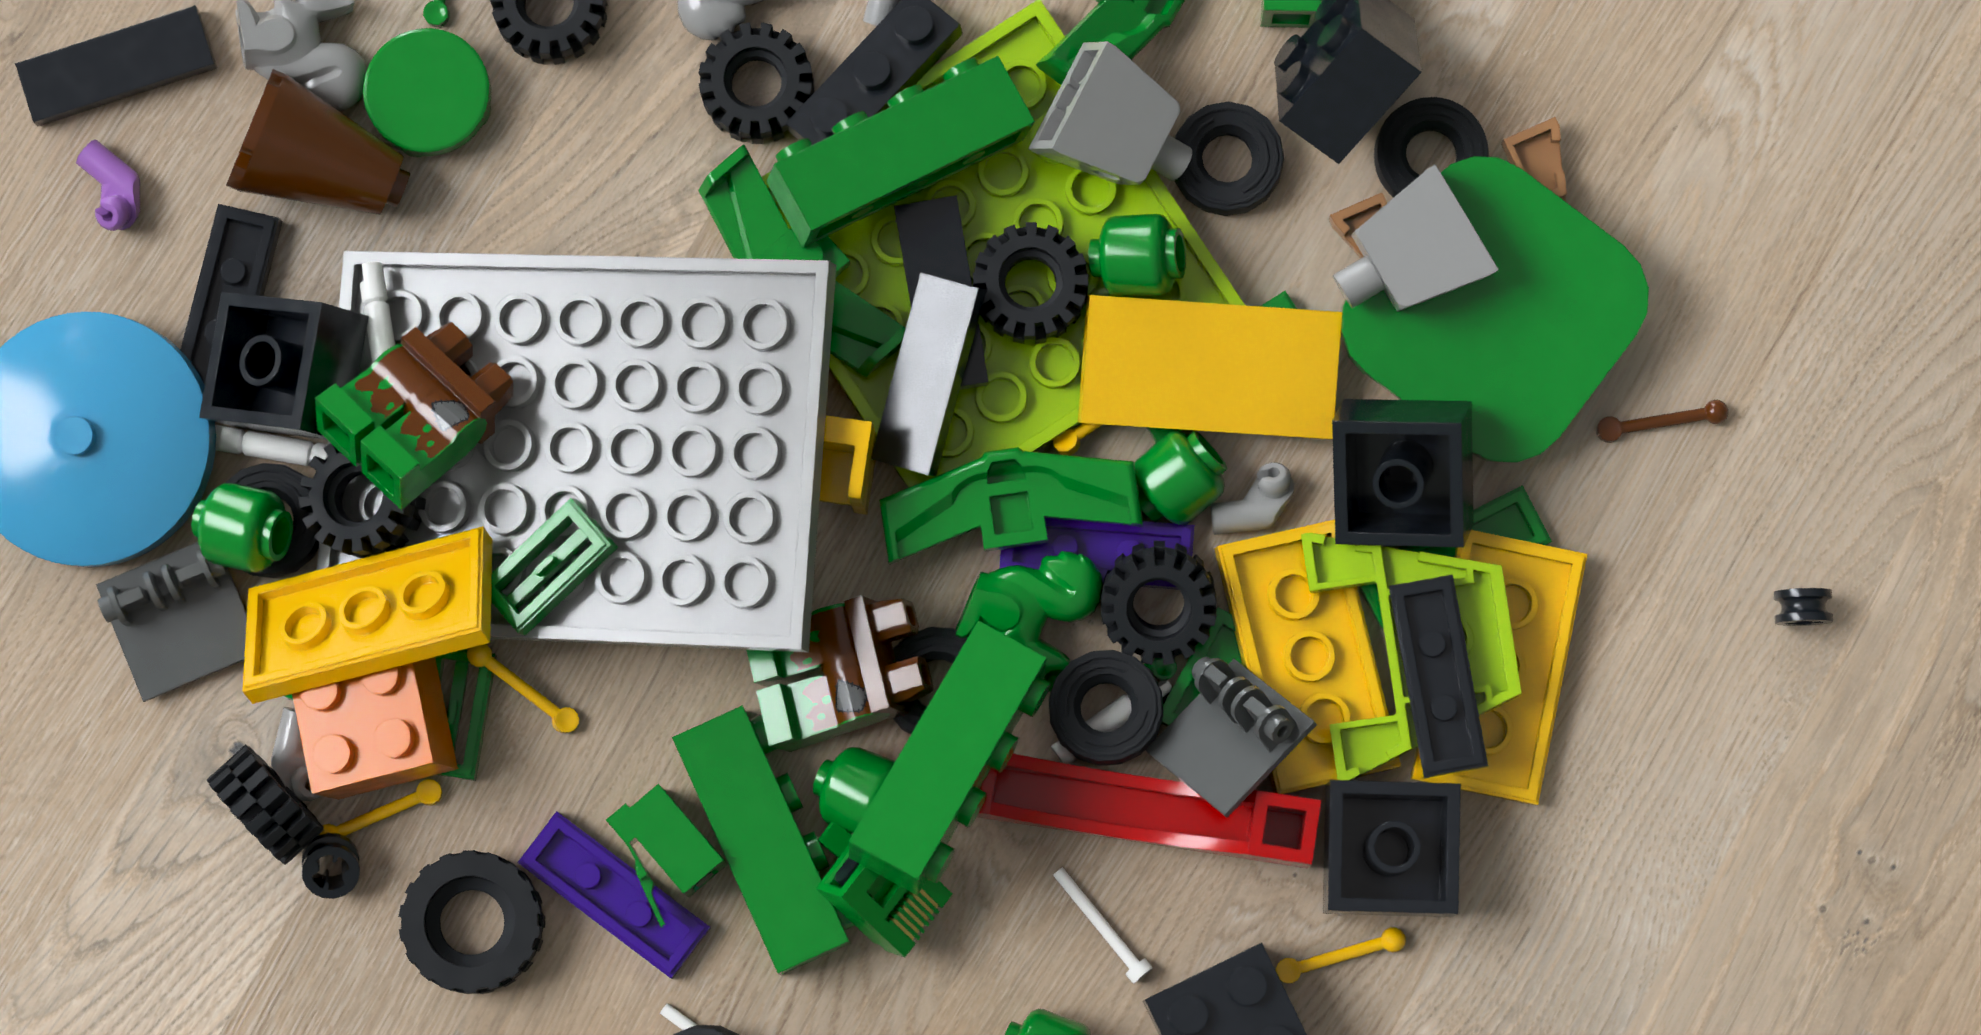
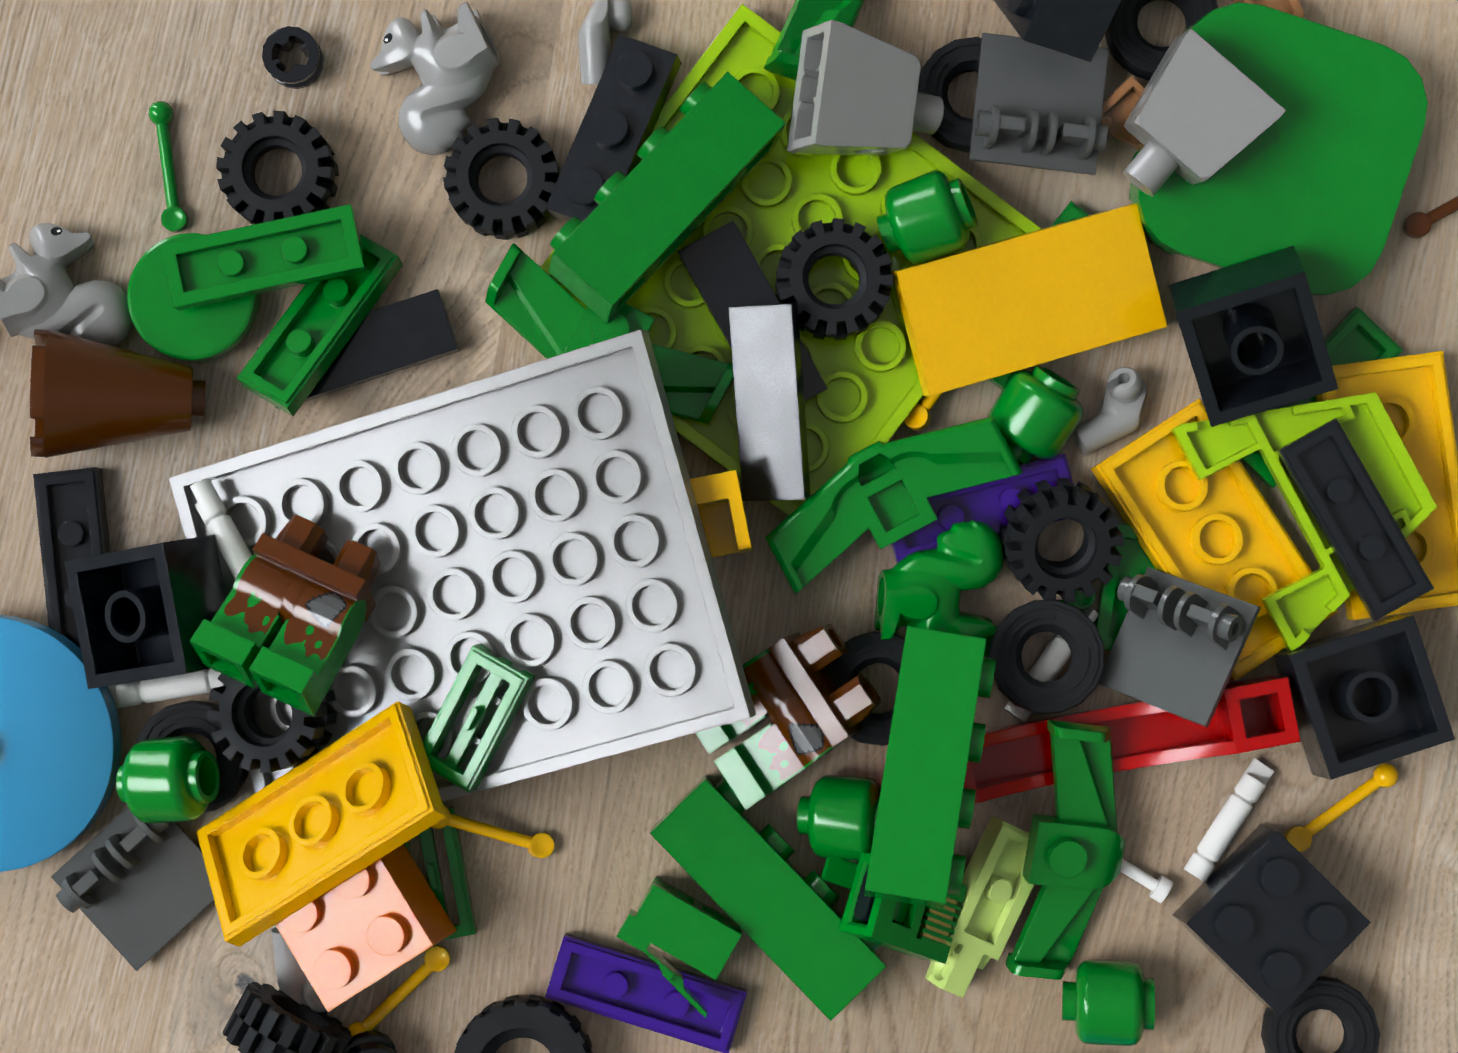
camera: 25 degrees left, 5 degrees up
(507, 77) = (263, 257): none -> green plate
(538, 155) = (317, 330): none -> green tile
(563, 194) = (390, 342): none -> black tile
(970, 922) = (989, 908): none -> yellowish green hinge
(1063, 899) = (1069, 852): none -> green plate
(1227, 929) = (1229, 820): none -> white wheel
(1281, 190) = (1038, 106): none -> dark grey hinge

